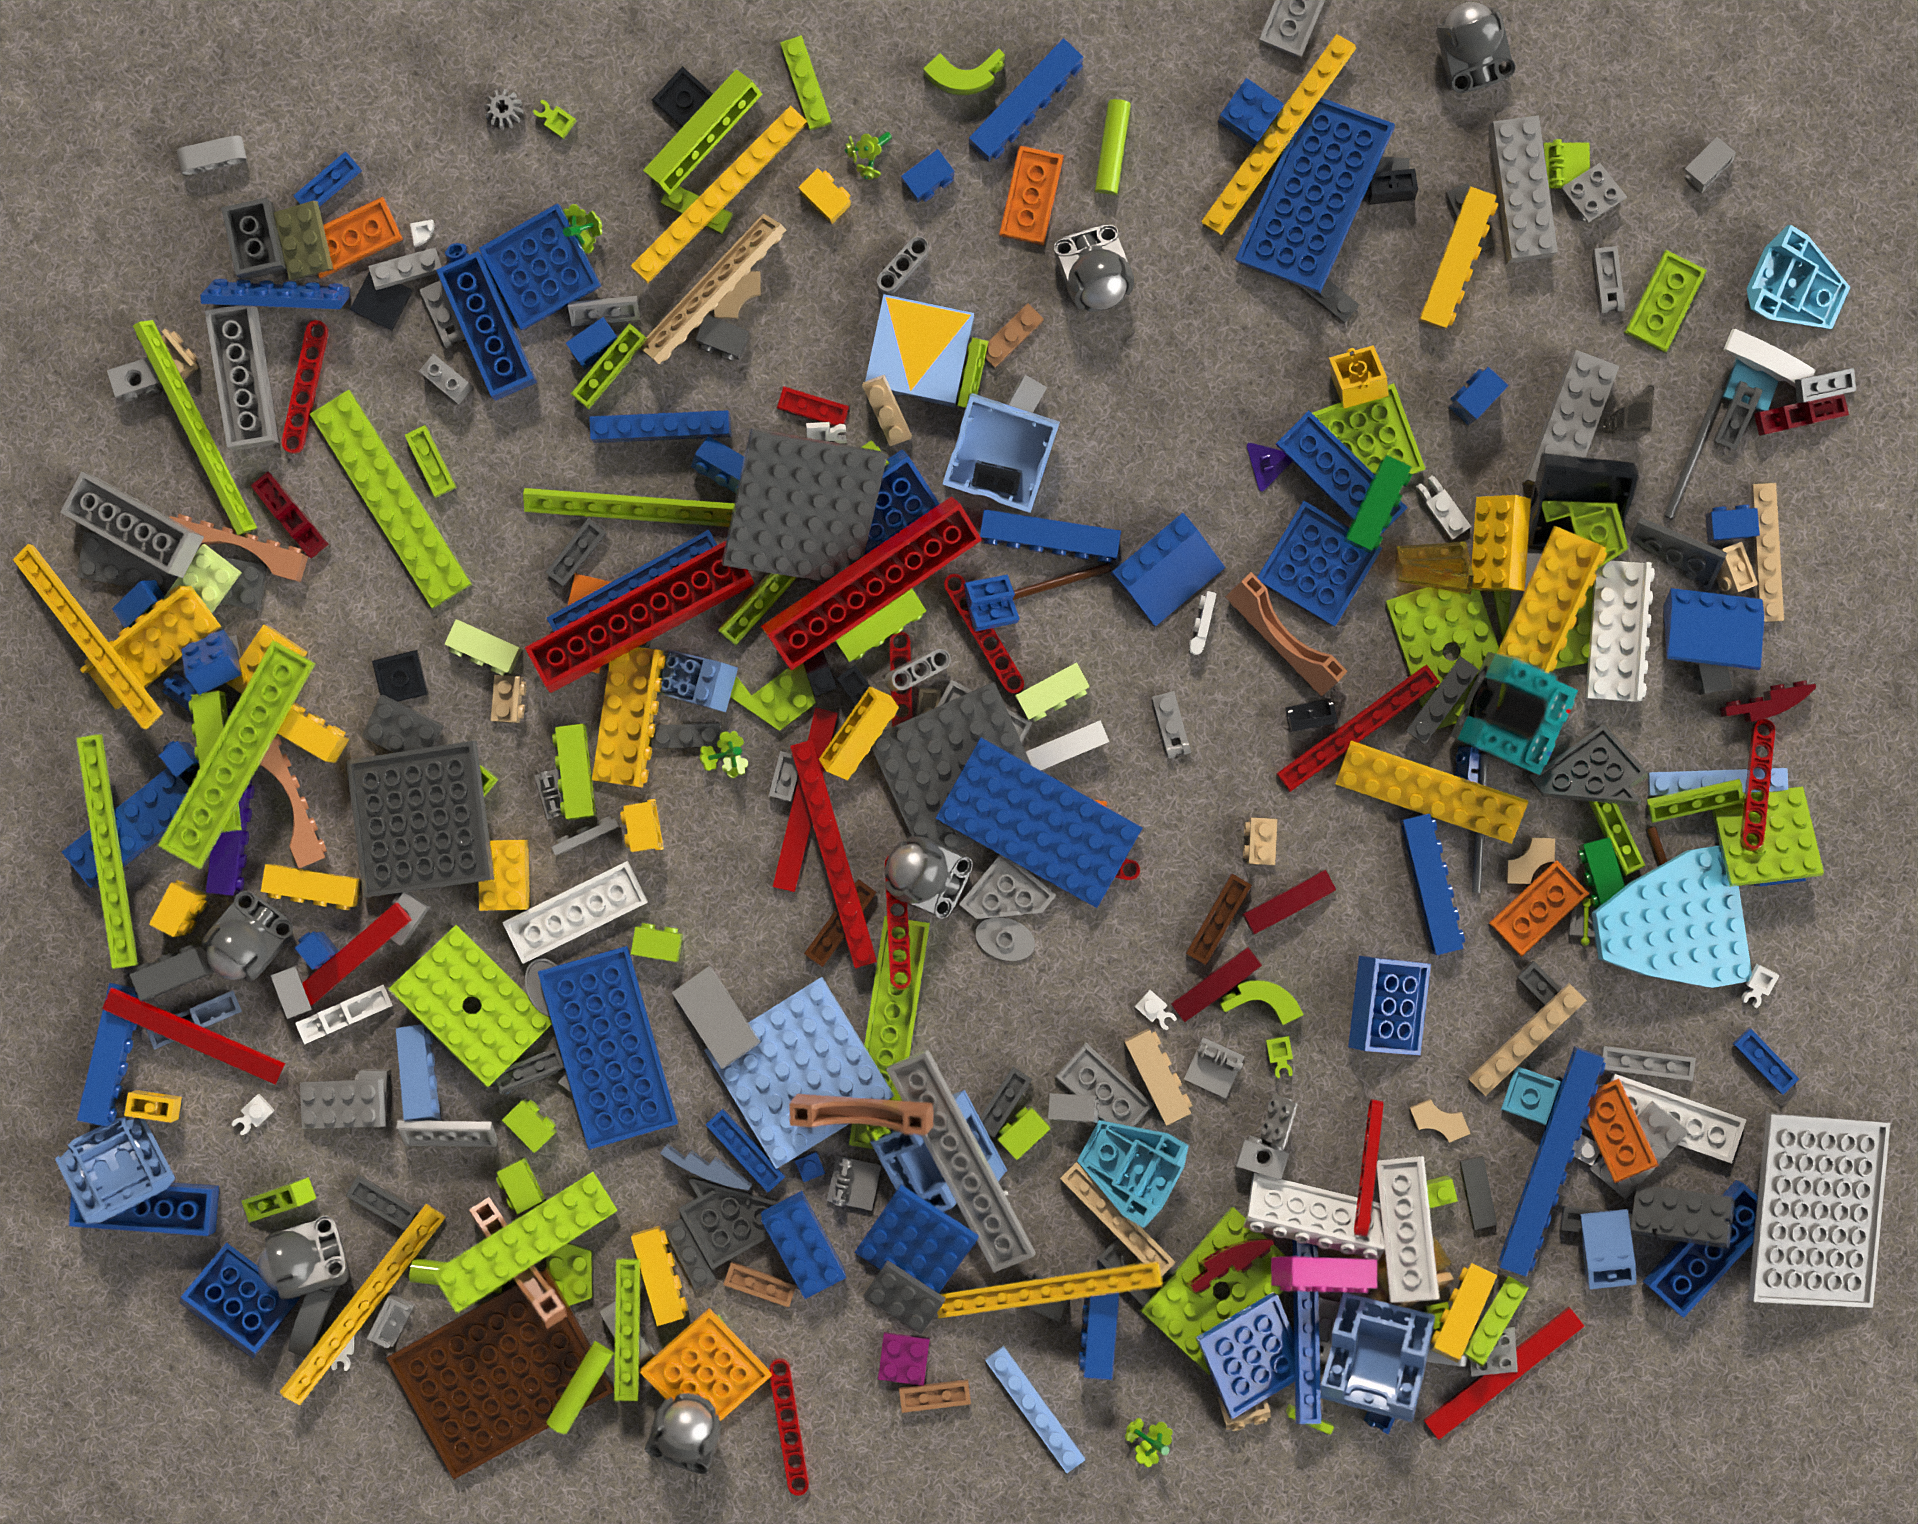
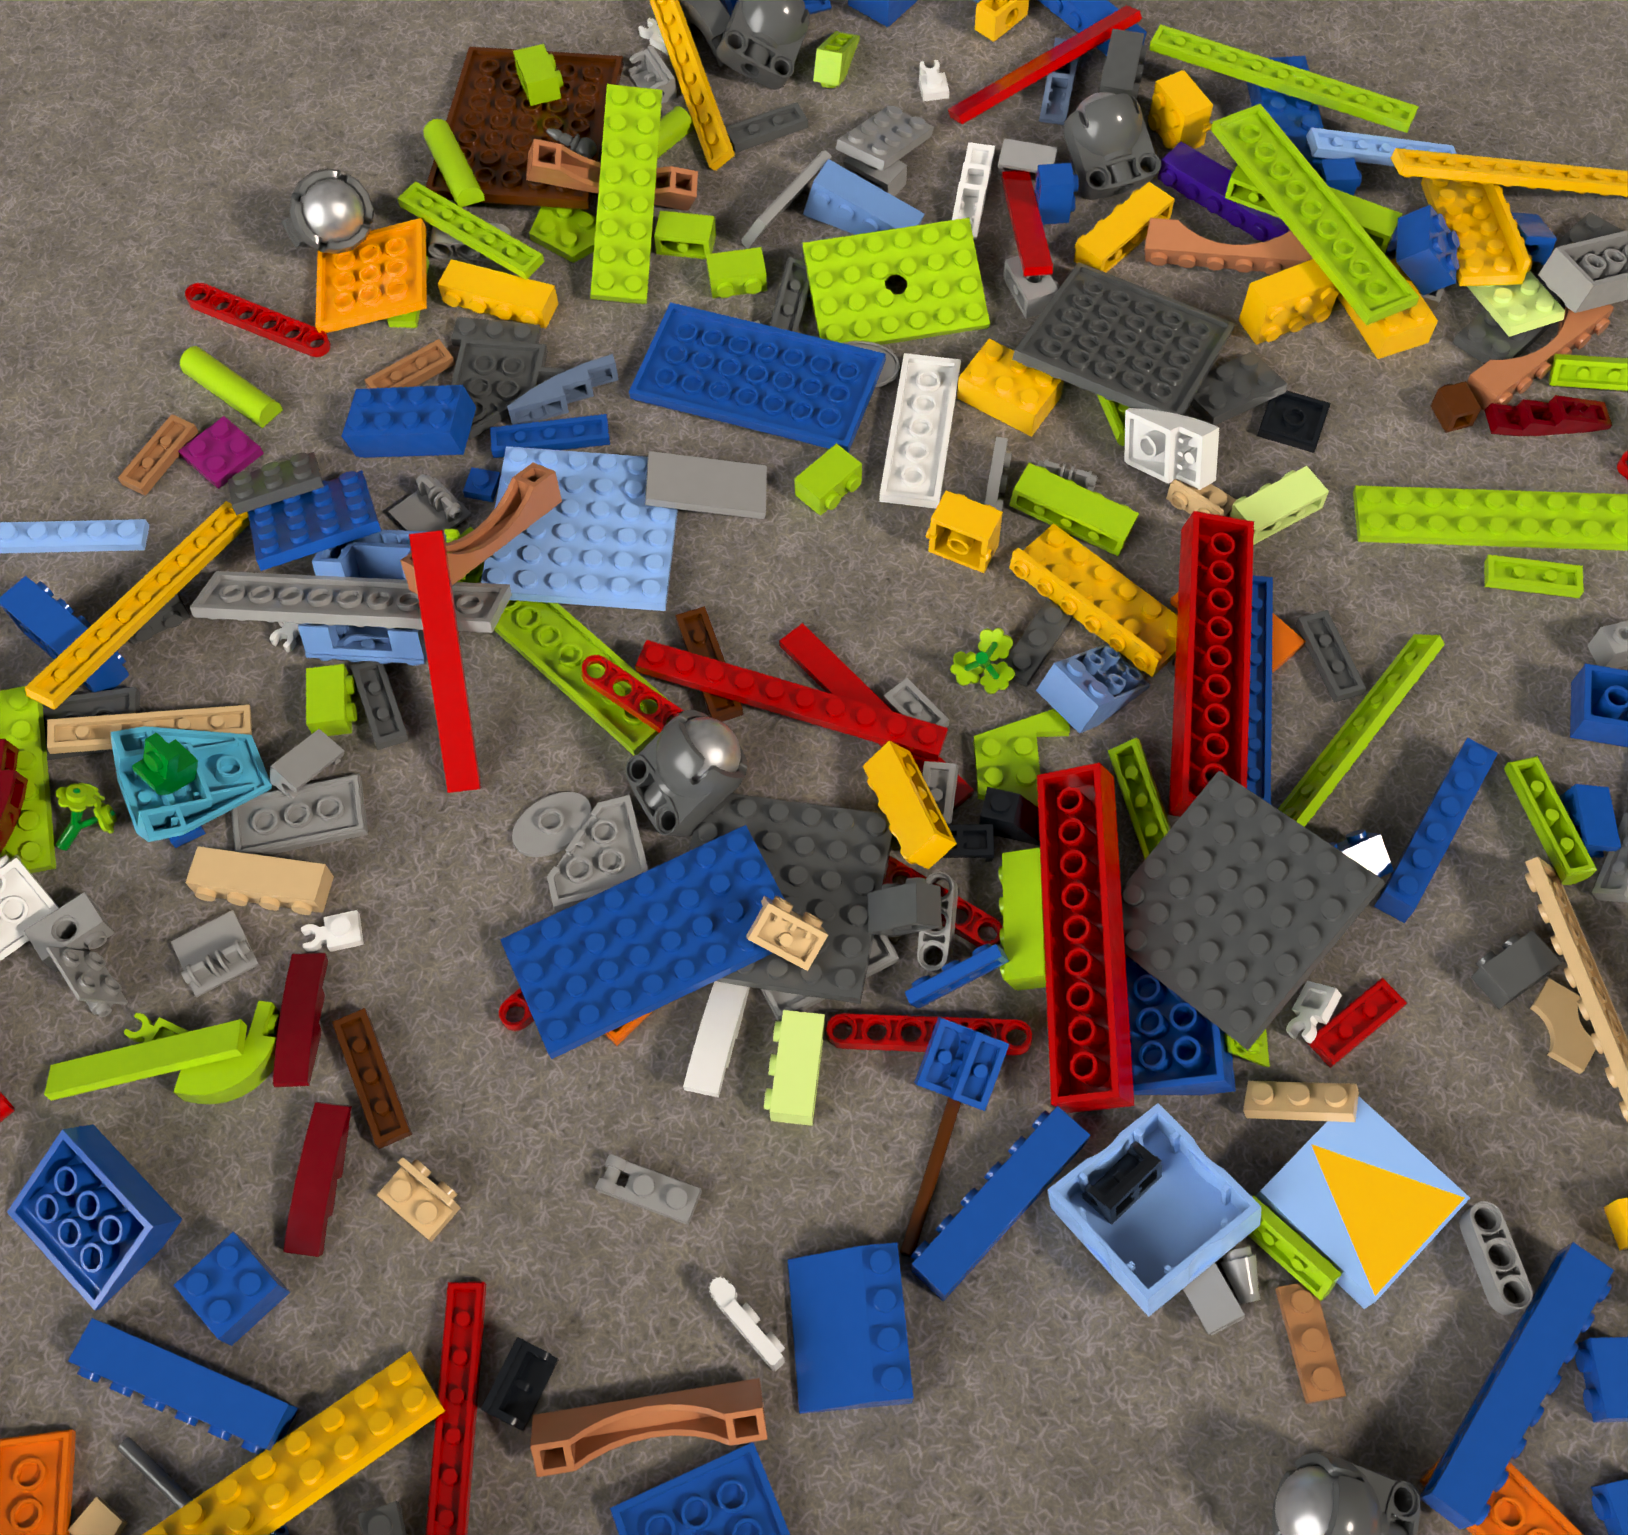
camera: 130 degrees right, 25 degrees down
(123, 744) = (1364, 147): none -> light blue plate
(322, 578) = (1455, 406): none -> reddish brown brick
(455, 1396) = (538, 74): none -> lime brick
(491, 735) = (1171, 446): none -> white slope
(499, 1309) = (582, 146): none -> dark grey bar
(829, 725) = (942, 782): none -> light grey plate
(852, 1397) = (229, 386): none -> lime brick
(927, 690) = (904, 908): none -> dark grey brick
(942, 639) = (956, 975): none -> blue plate
(963, 1065) = (445, 661): none -> red tile
(964, 221) = (1516, 1387): none -> blue brick
(988, 743) = (787, 932): none -> tan bracket
(1001, 388) = (1242, 1274): none -> light grey cone
(1139, 1176) = (165, 765): none -> green brick
(1191, 1215) = (77, 798): none -> lime plant
(1298, 1045) = (146, 1059): none -> lime tile
(1372, 898) = (231, 1289): none -> blue brick

